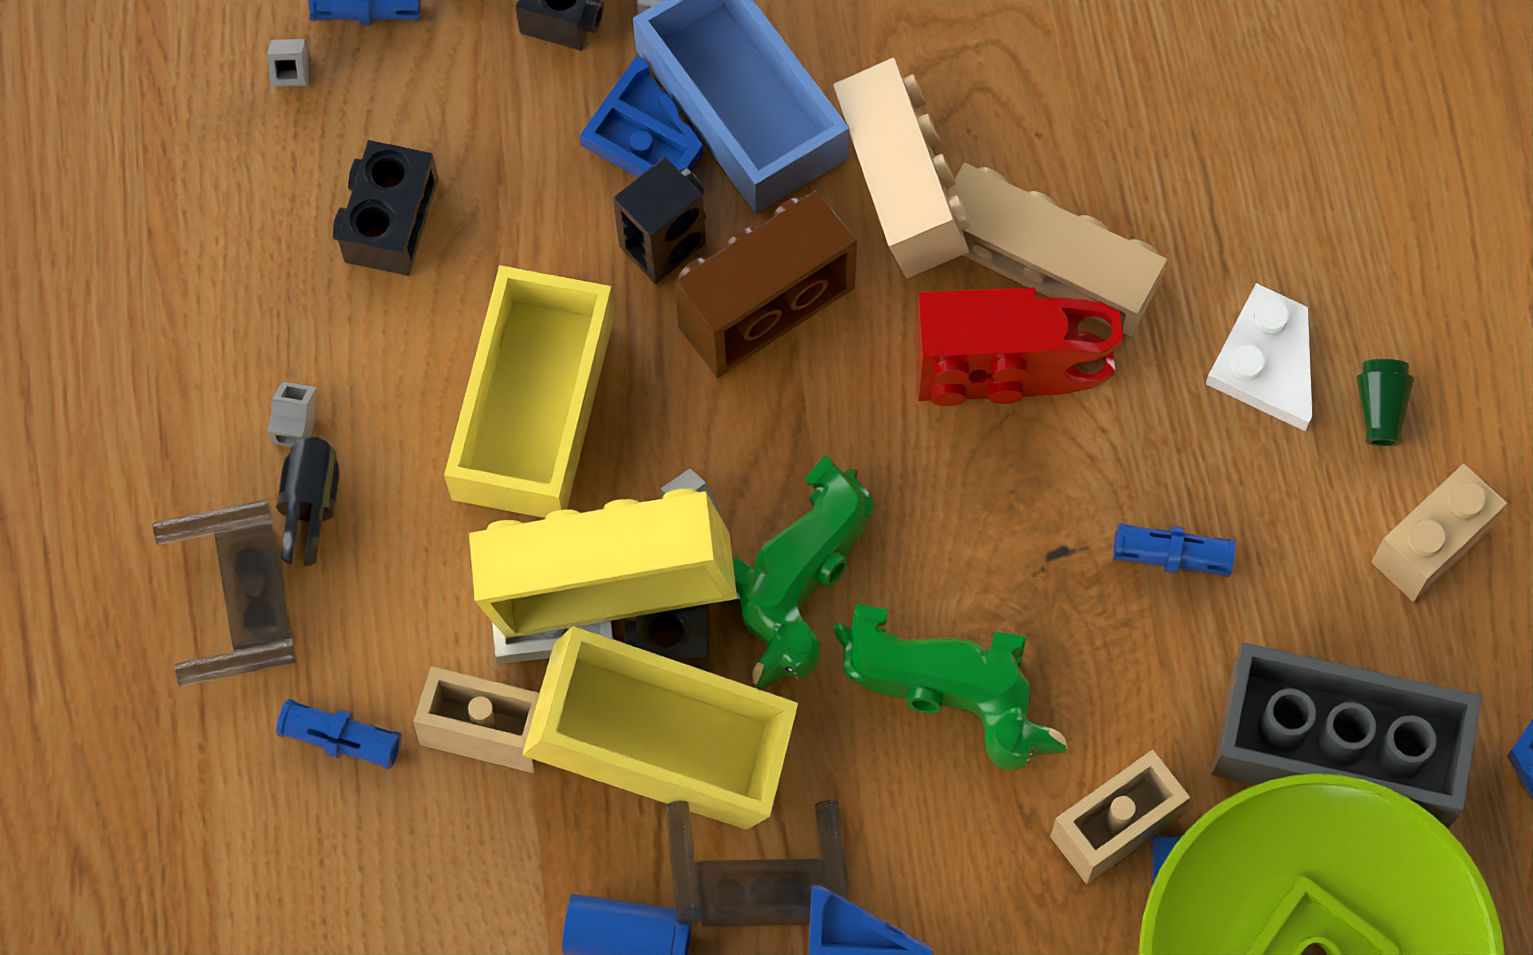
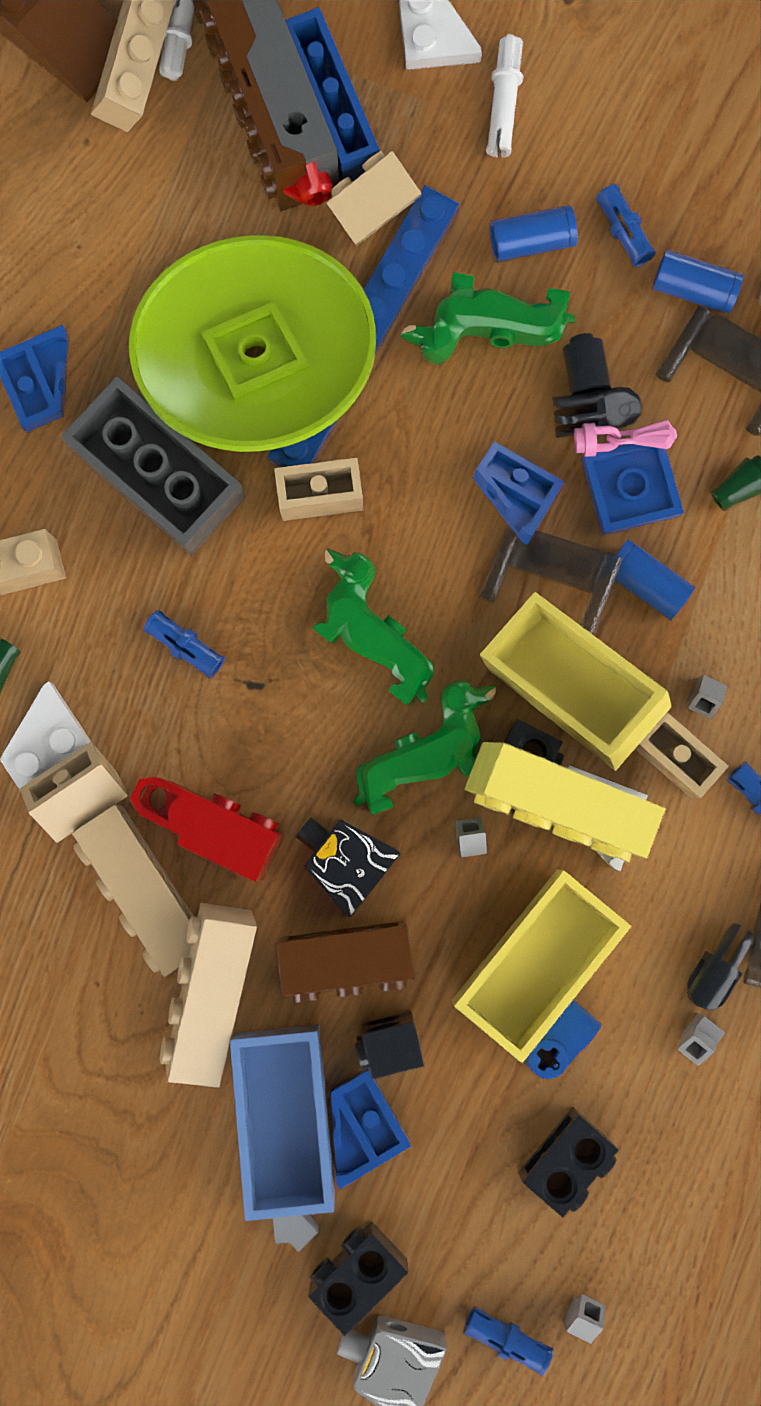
camera: 155 degrees left, 15 degrees up
(457, 330) = (568, 1037): none -> blue piece
(477, 822) = (709, 690): none -> light grey piece
(825, 398) = (346, 861): none -> black torso
(1194, 308) = (73, 792): none -> tan brick

